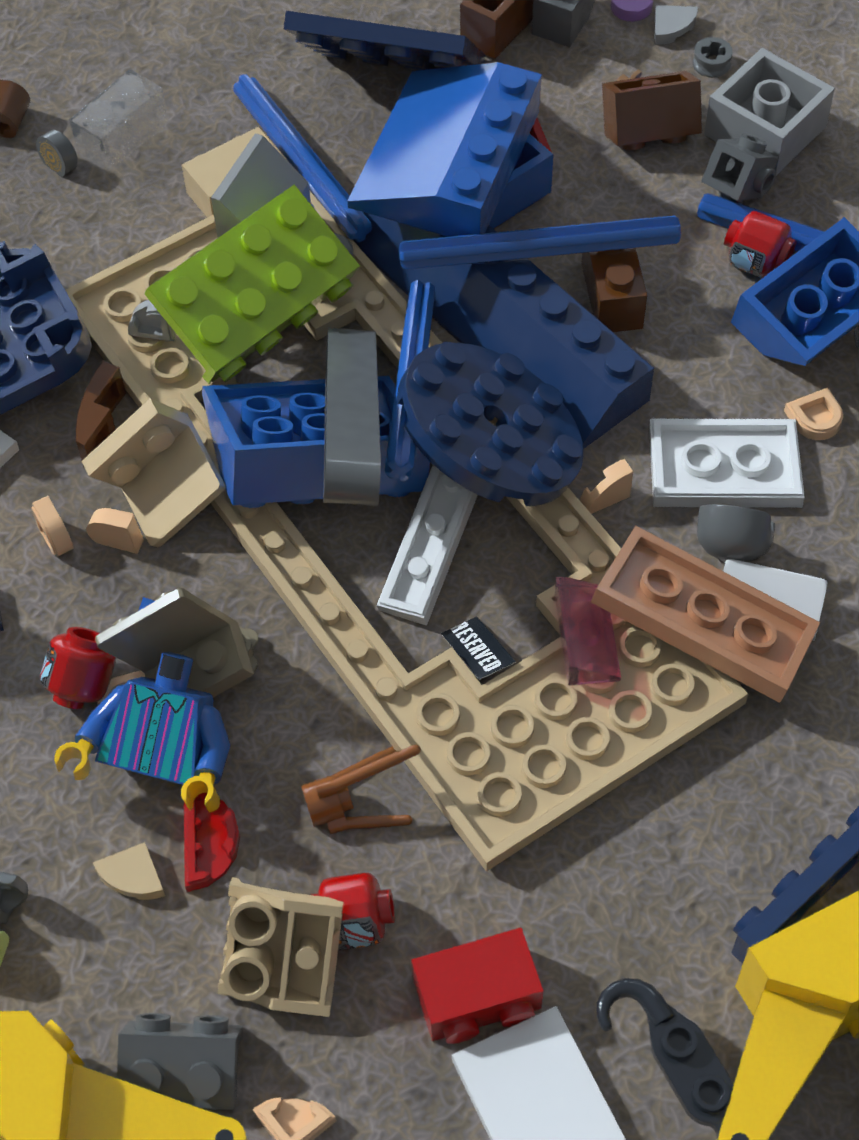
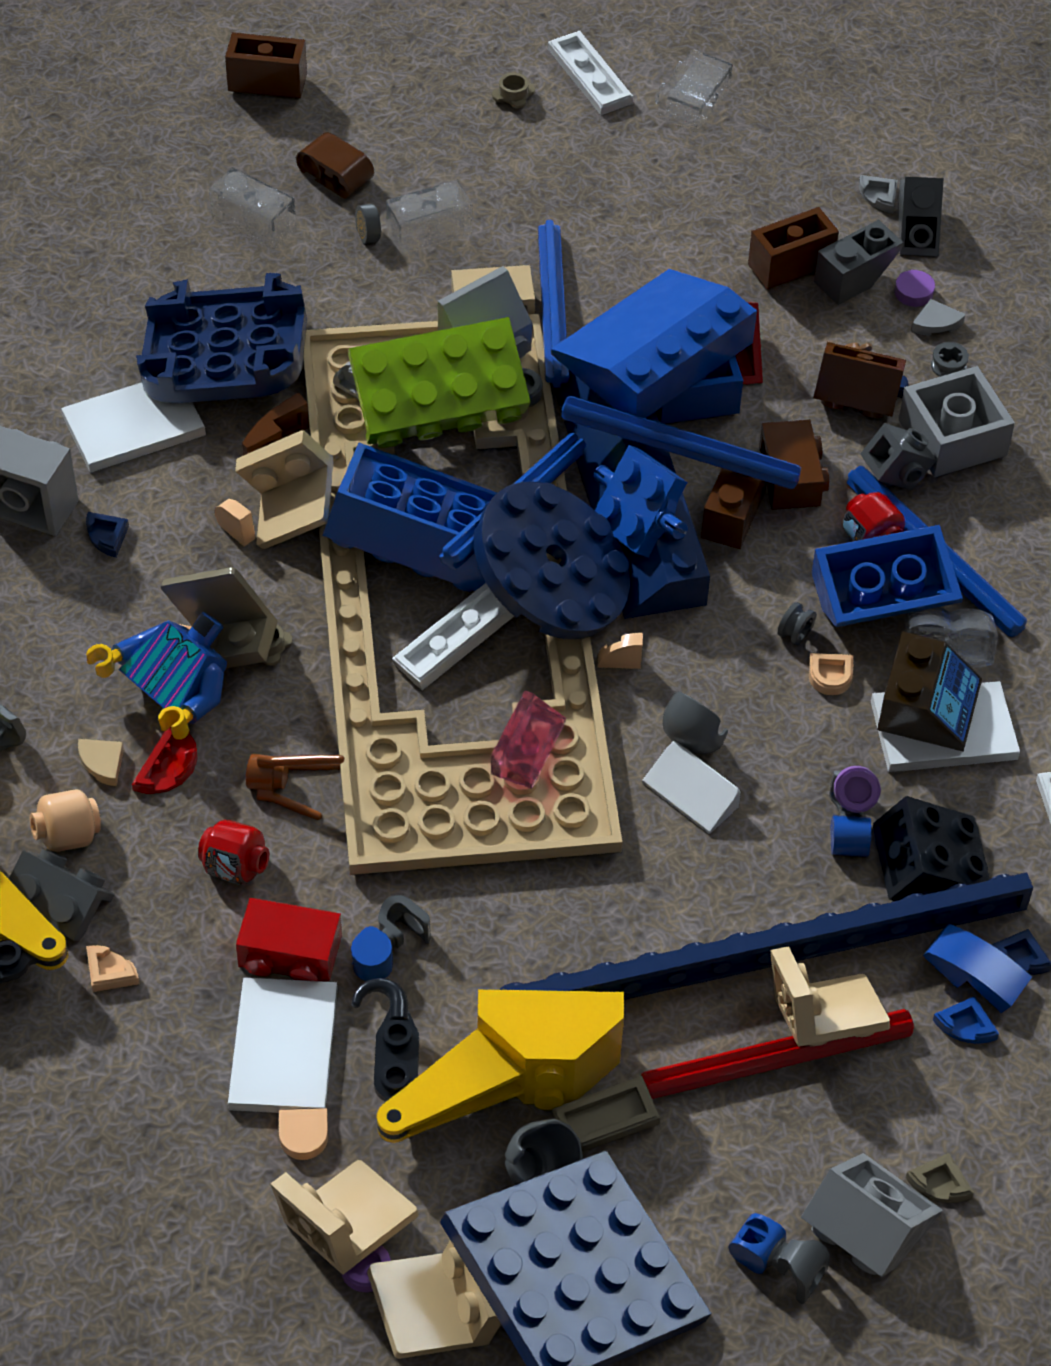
camera: 25 degrees right, 5 degrees down
(51, 526) = (191, 498): light nougat tile -> none
(76, 668) = (144, 603): red head -> none
(139, 969) = (65, 820): none -> light nougat head
(286, 943) = (168, 847): tan slope -> none
(351, 419) = (441, 505): dark grey beam -> none
(379, 42) = (664, 240): dark blue plate -> none
(478, 648) = (446, 720): black sticker -> none
(539, 320) = (640, 500): none -> blue plate
(574, 945) = (373, 946): none -> leg
(637, 198) = (795, 444): none -> reddish brown brick
(706, 613) = (627, 769): nougat plate -> none
(726, 463) = (731, 675): white tile -> none
(755, 379) = (796, 623): none -> dark grey bush

